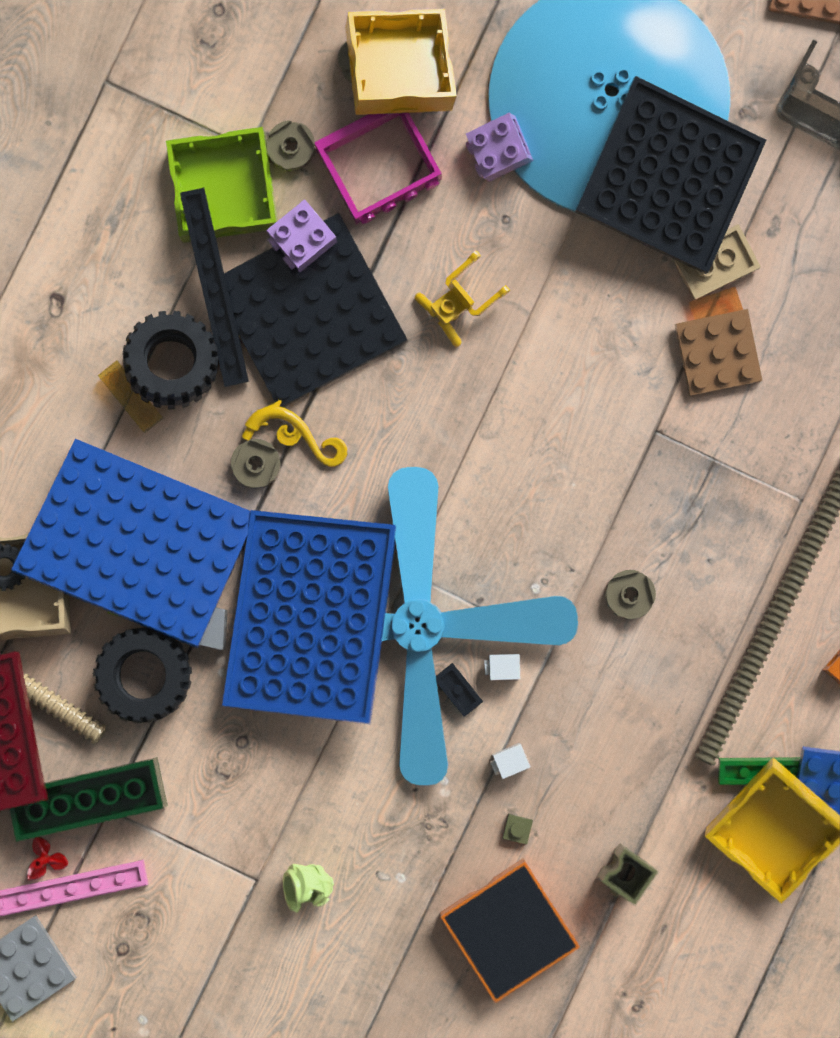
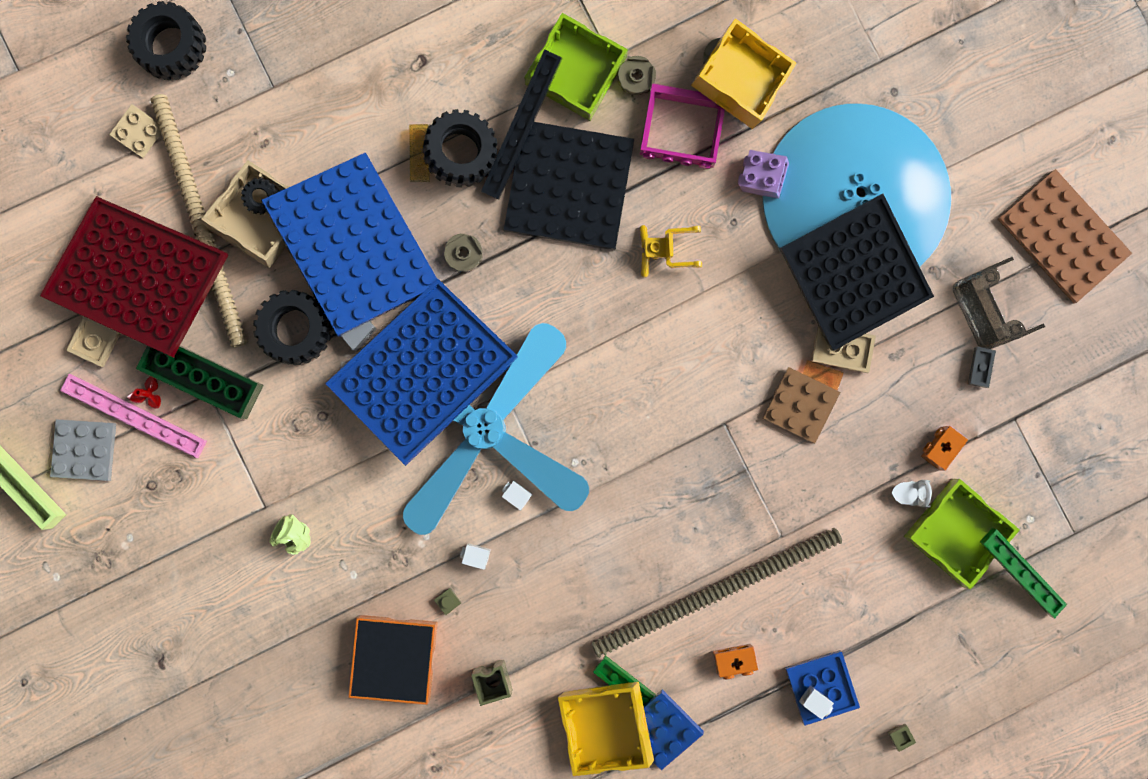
camera: 30 degrees right, 0 degrees up
(274, 411) = (507, 252): yellow plant -> none
(301, 236) = (598, 134): lavender brick -> none
(458, 689) = (478, 487): black plate -> none
(618, 587) = (640, 508): dark tan plate -> none

